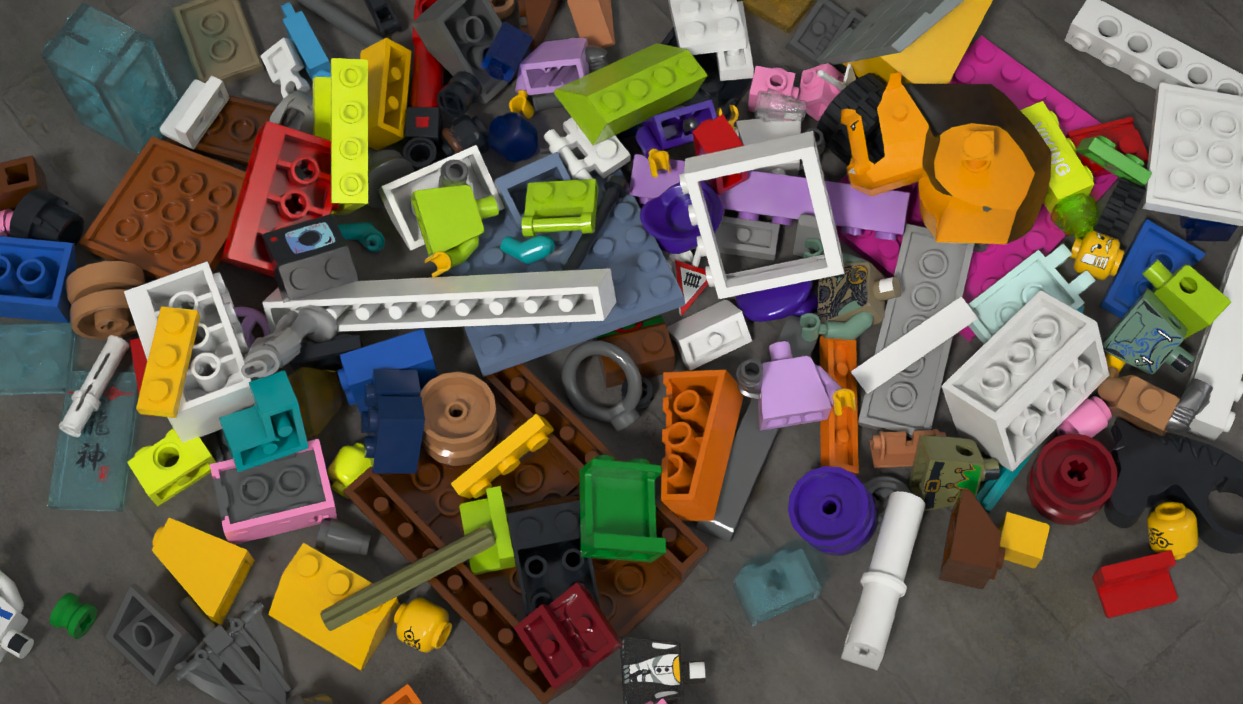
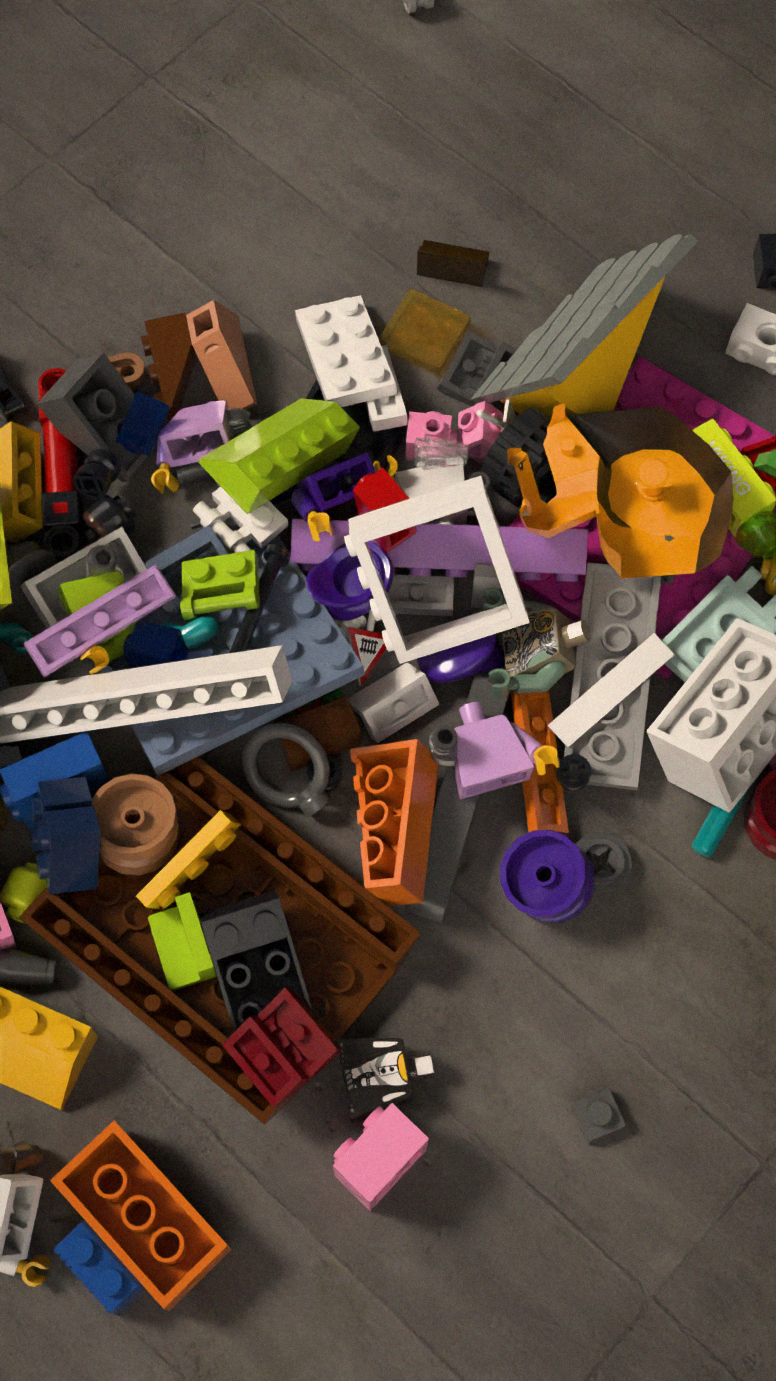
camera: 10 degrees left, 0 degrees up
(407, 578) = (100, 1005): olive axle -> none
(422, 624) = (122, 1052): yellow head -> none
(446, 228) = (99, 620): none -> lavender tile
(493, 256) = (154, 645): none -> clear blue brick
(513, 137) = (160, 514): clear blue head -> none
(619, 510) = (321, 904): green panel -> none
(766, 602) = (486, 983): clear light blue brick -> none
(861, 410) = (583, 779): none -> black bush
(884, 581) = (611, 946): white piece -> none
(896, 450) = (606, 803): nougat hinge -> none
(947, 467) = (663, 821): olive torso -> none
(971, 545) = (696, 895): reddish brown slope -> none
(1023, 539) = (747, 884): yellow panel -> none

